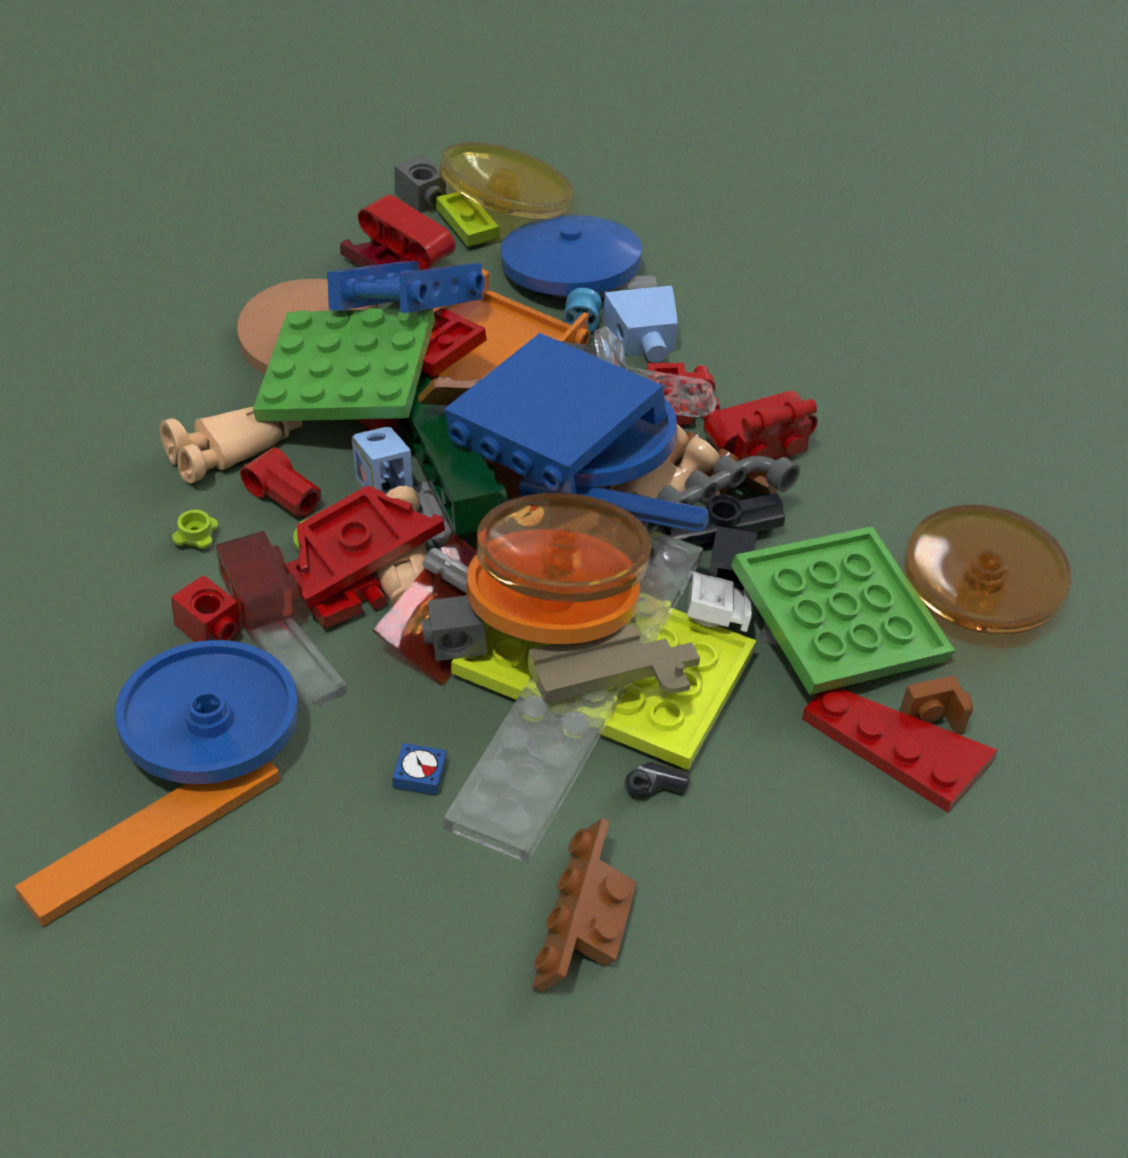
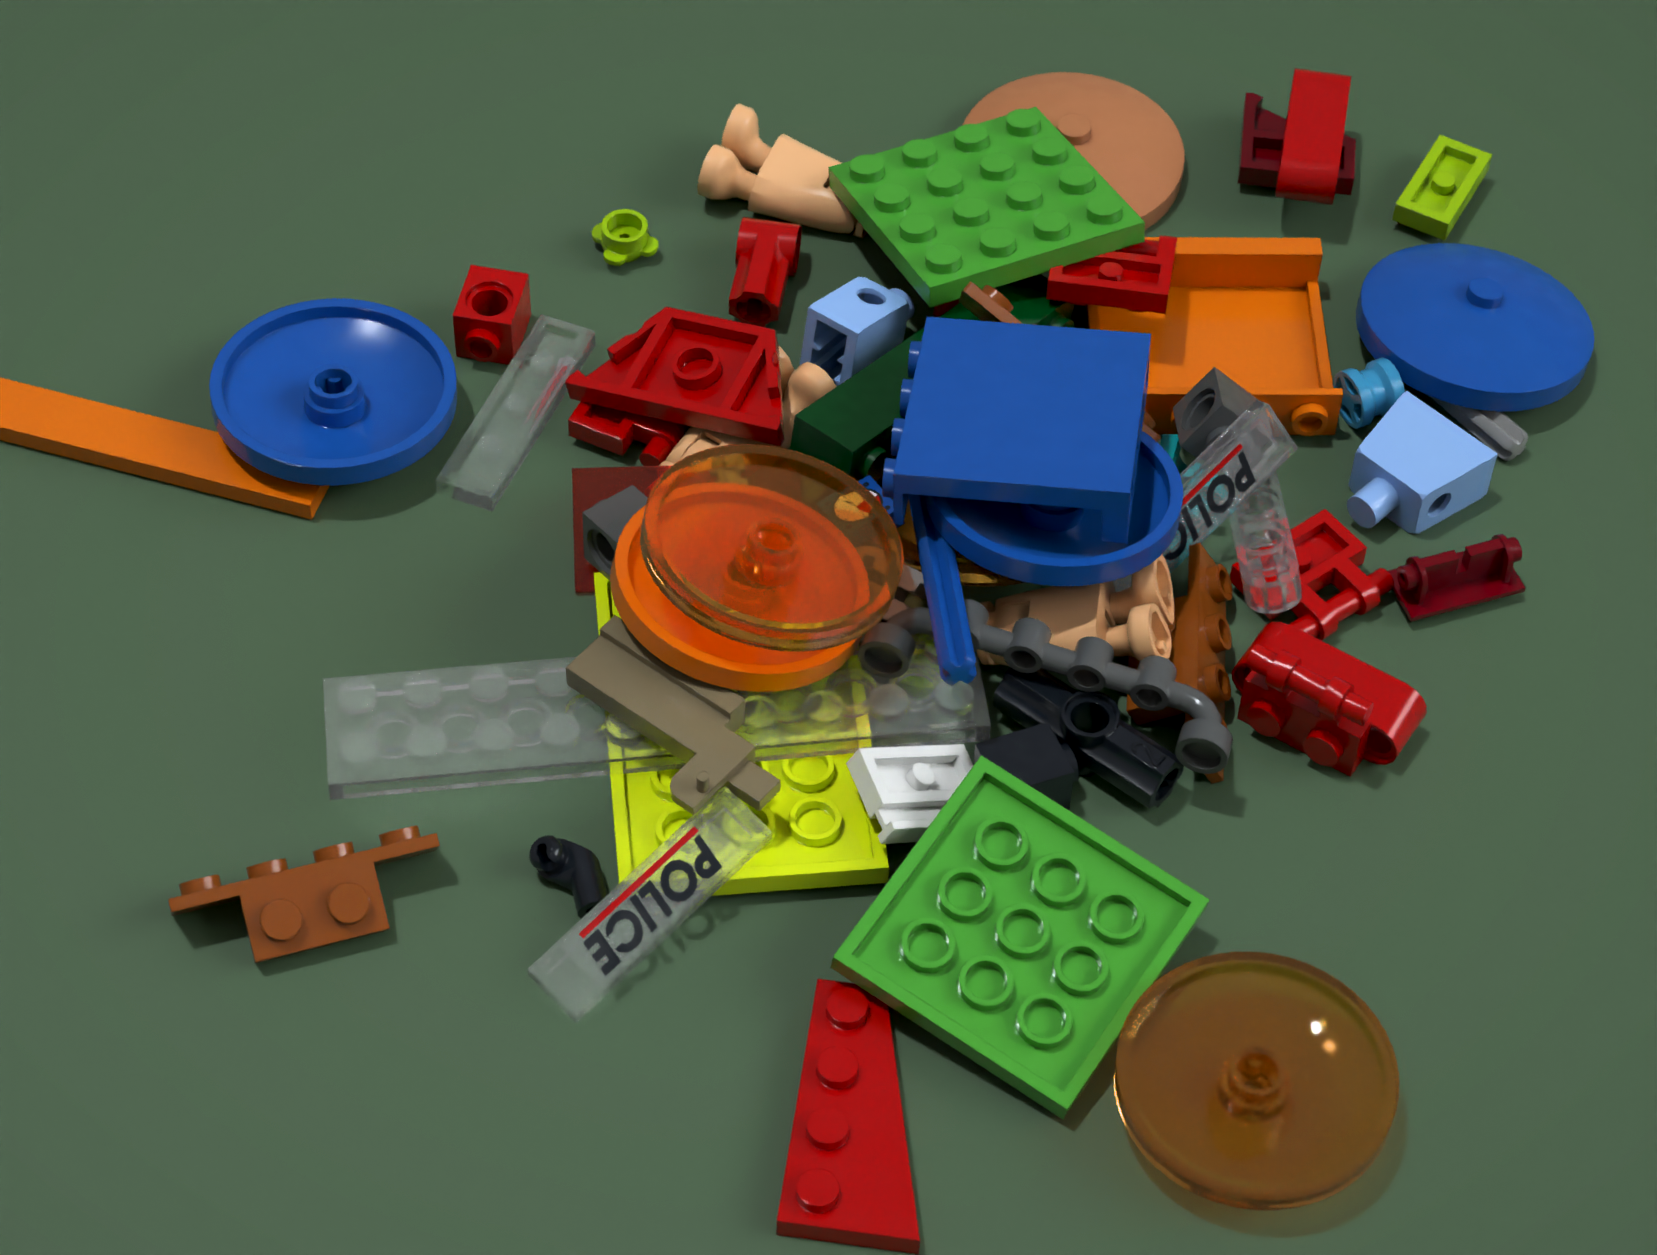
camera: 60 degrees right, 5 degrees up
(257, 580) = (561, 323): clear red brick -> none
(406, 284) = (1172, 181): blue fence -> none
(419, 183) = (1454, 103): dark grey brick -> none
(419, 768) = (417, 633): tile -> none
(506, 180) = (1543, 181): clear yellow dish -> none
(716, 753) = (649, 904): none -> clear tile
(721, 344) = (1458, 579): none -> dark red hinge
(939, 699) = (947, 1121): dark orange bracket -> none

